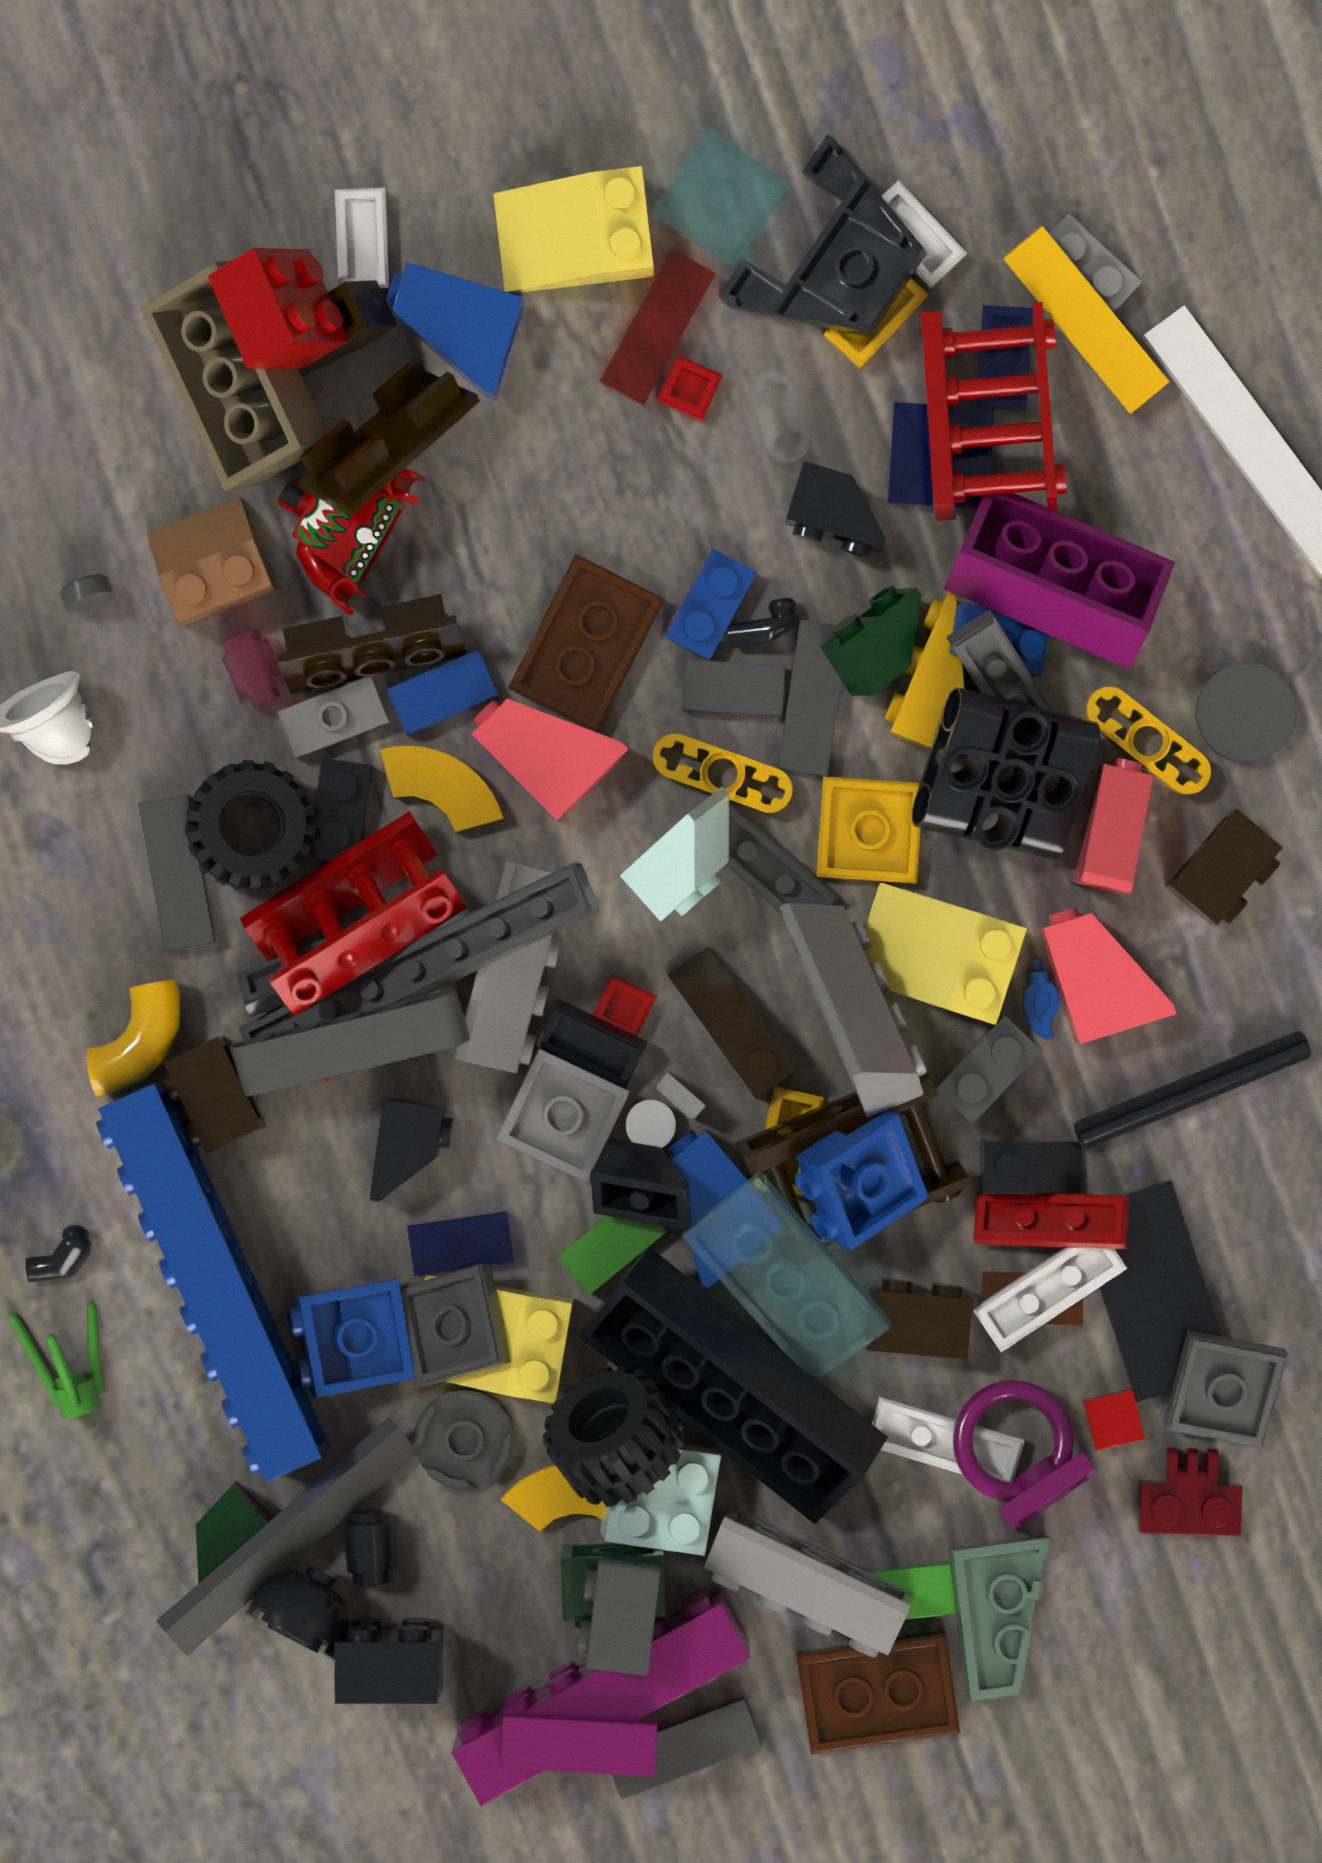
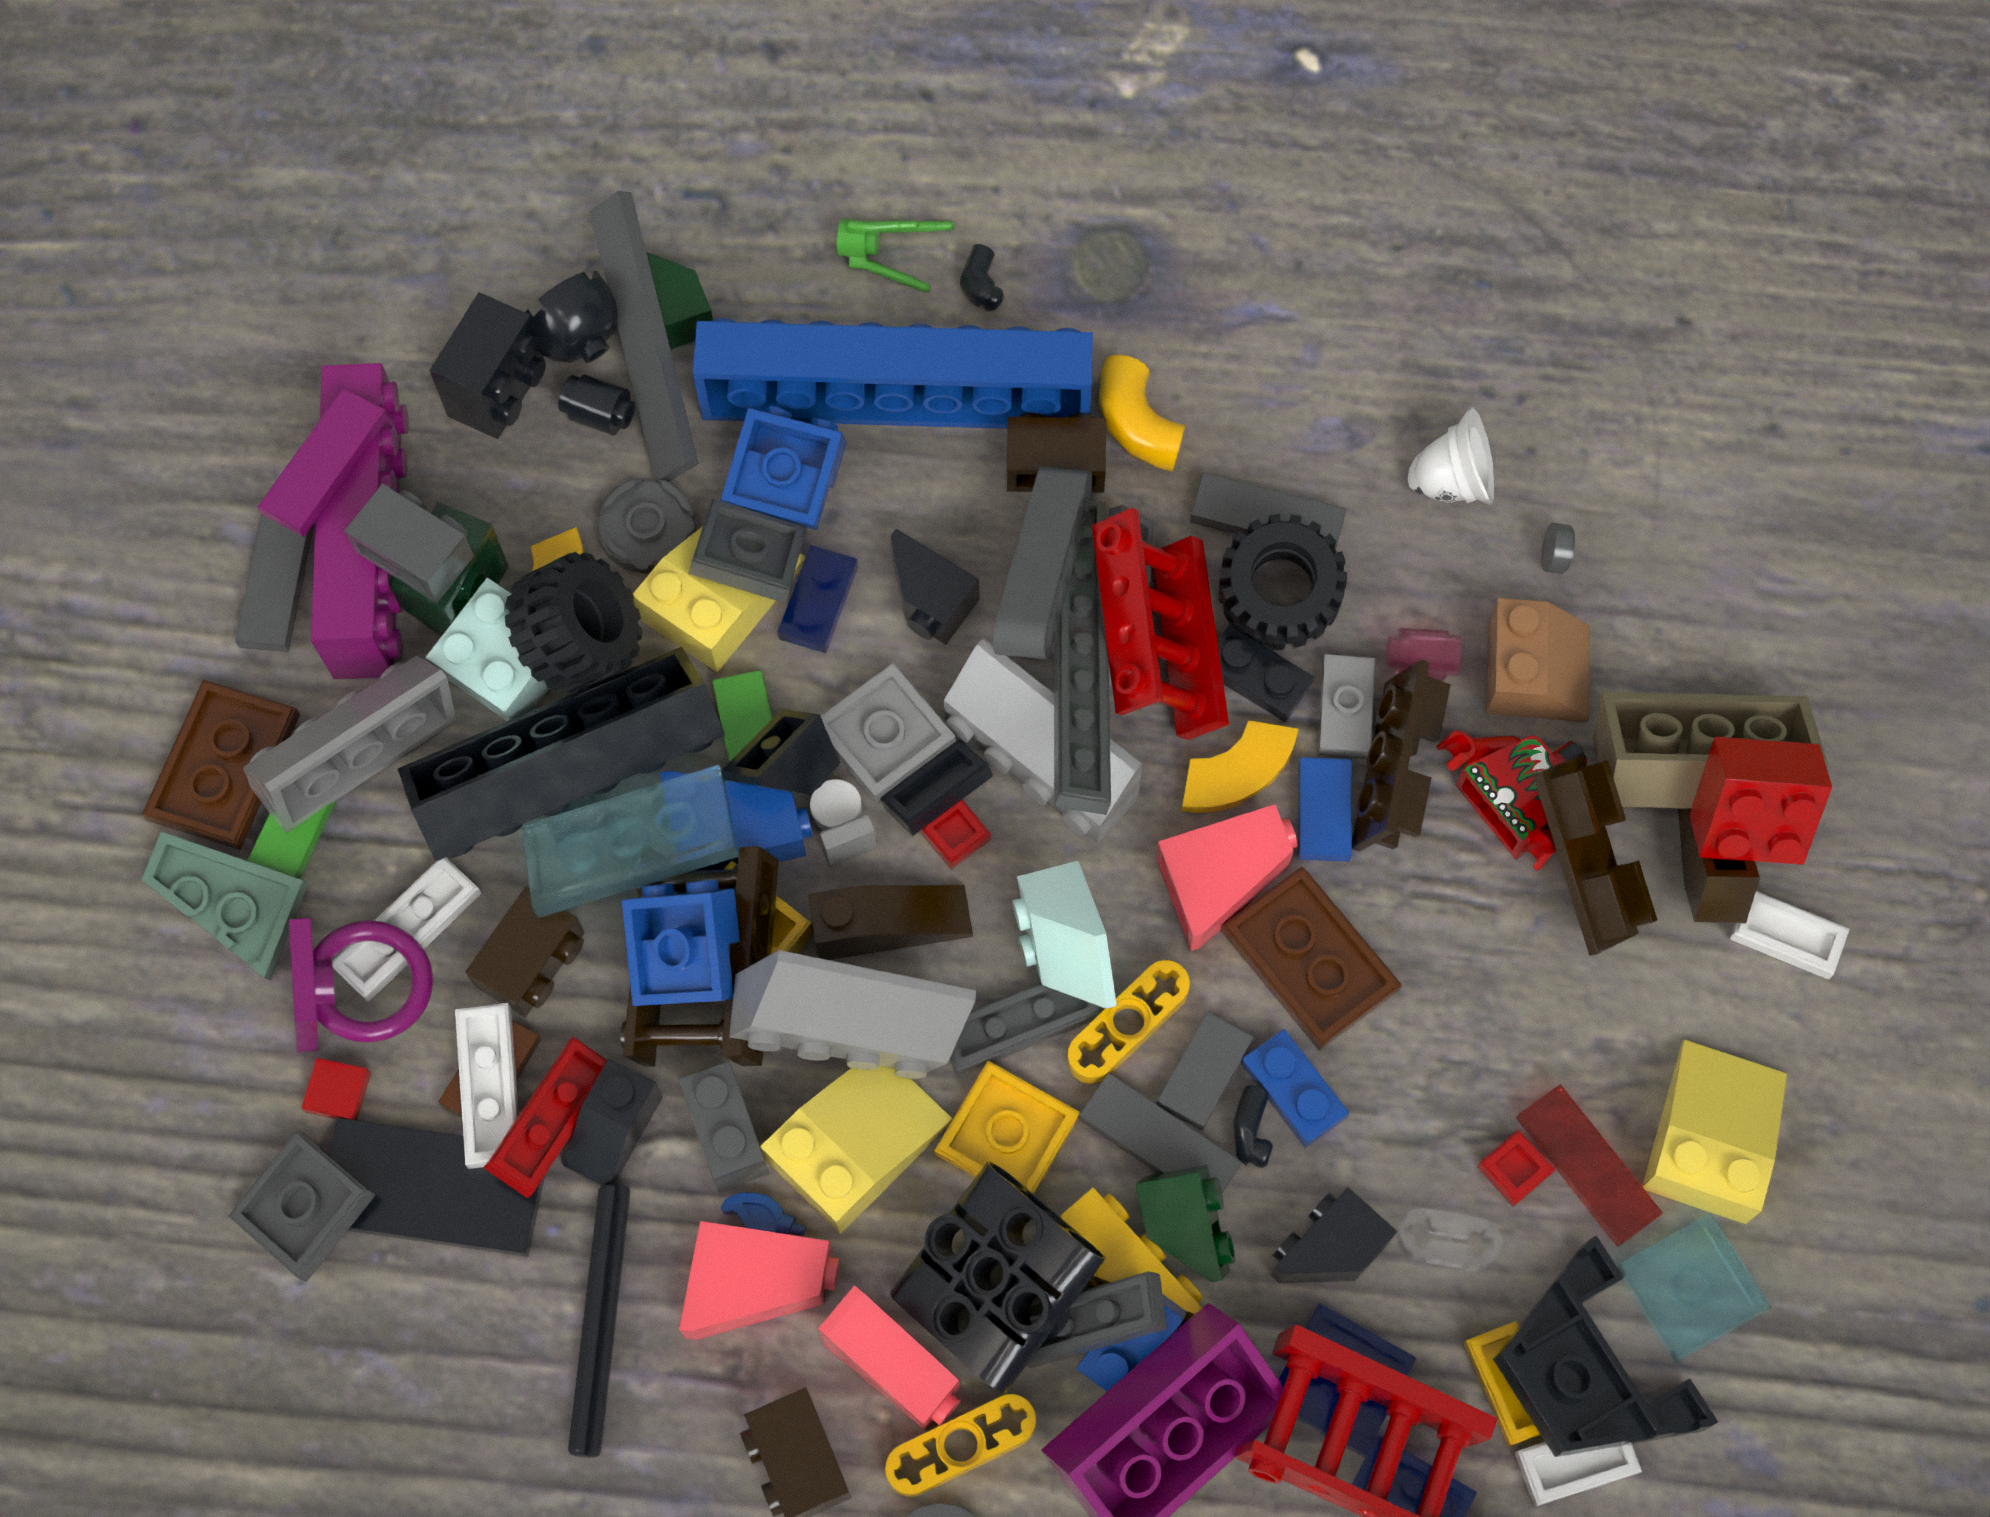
camera: 120 degrees right, 20 degrees down
(459, 321) = (1670, 979): blue slope -> none
(1190, 1499) = (221, 1125): dark red hinge -> none

